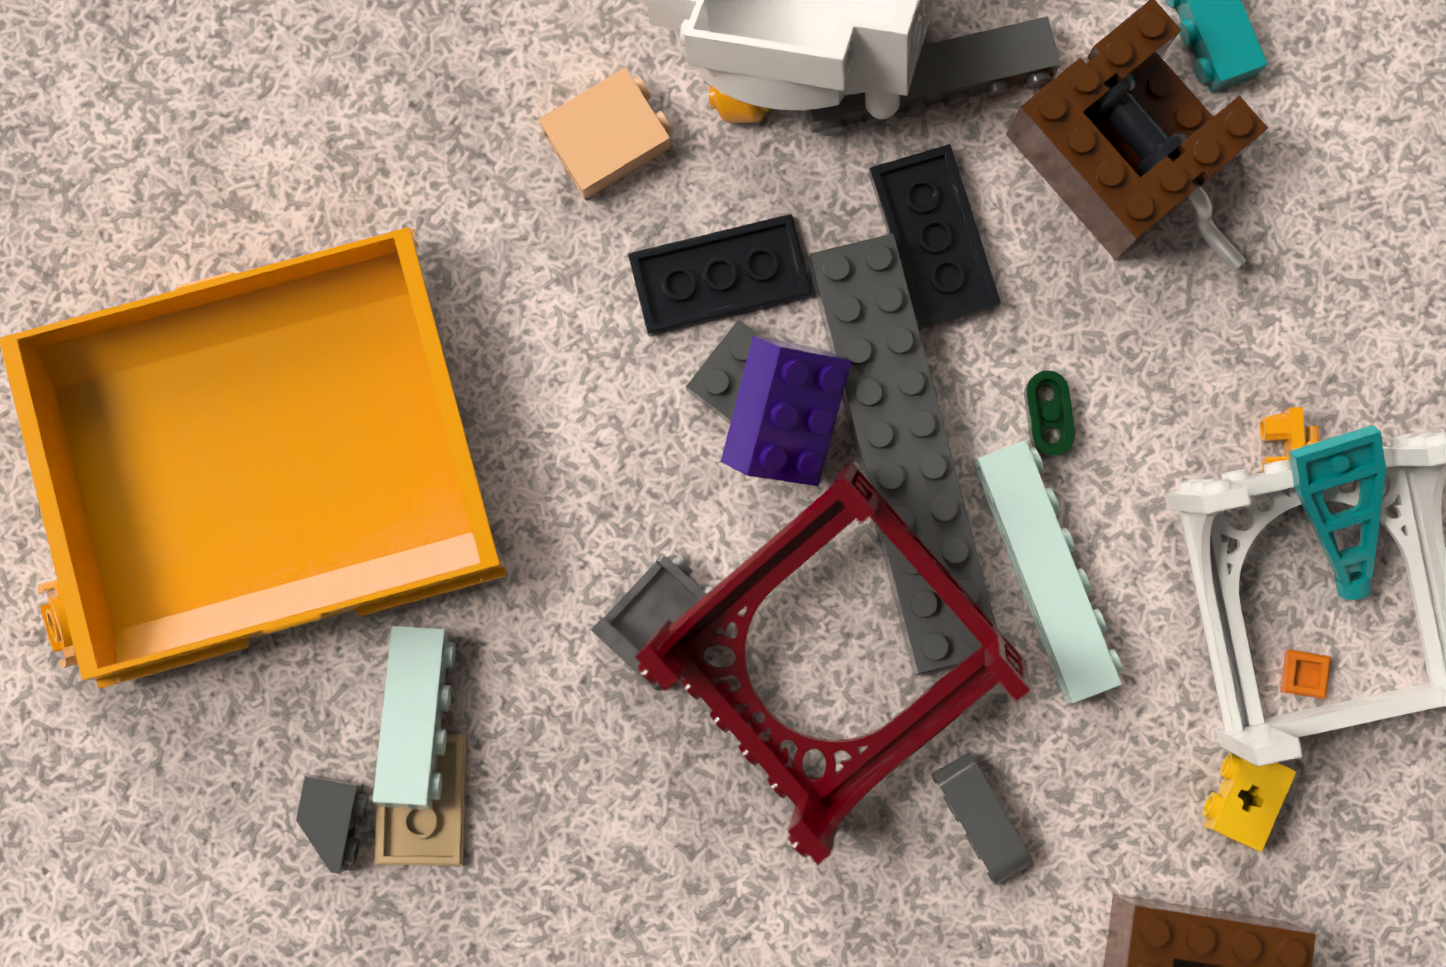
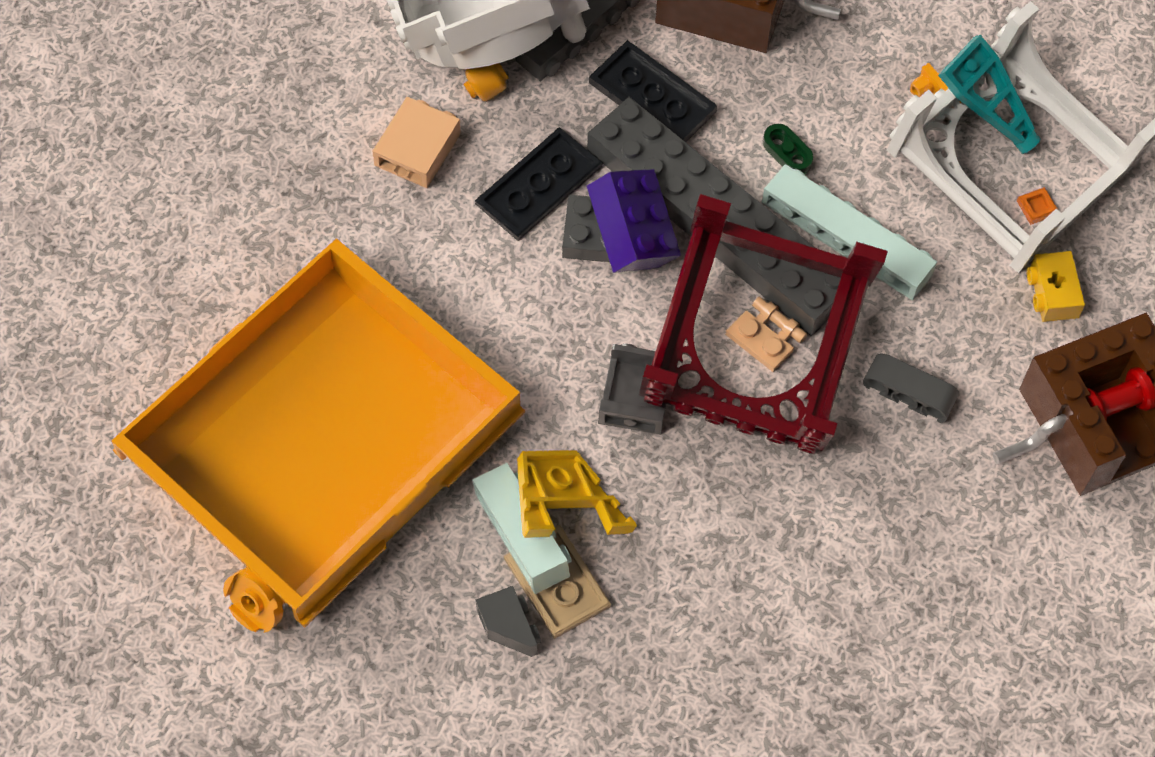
camera: 30 degrees left, 20 degrees down
(487, 687) = (563, 481): none -> yellow wing
(847, 642) = (760, 340): none -> light nougat plate

